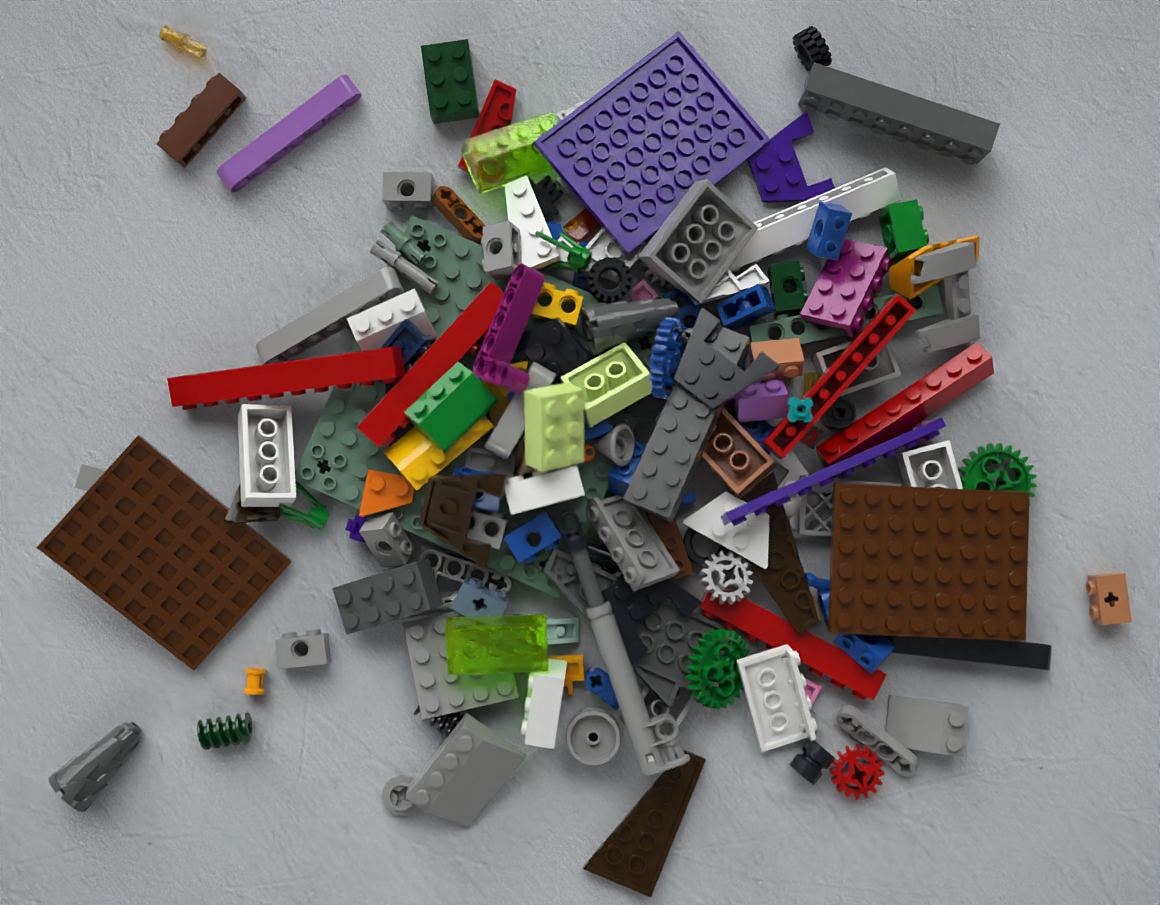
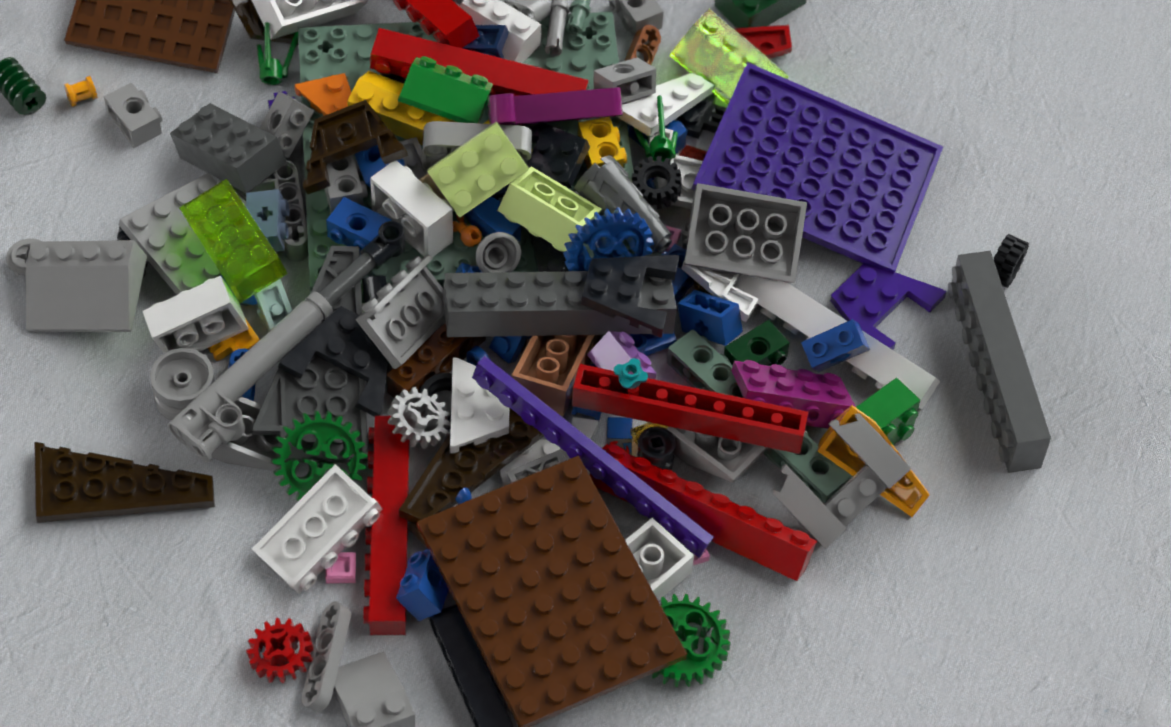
camera: 50 degrees right, 30 degrees down
(784, 352) = (673, 358): nougat slope -> none
(812, 761) = (269, 600): black wheel -> none

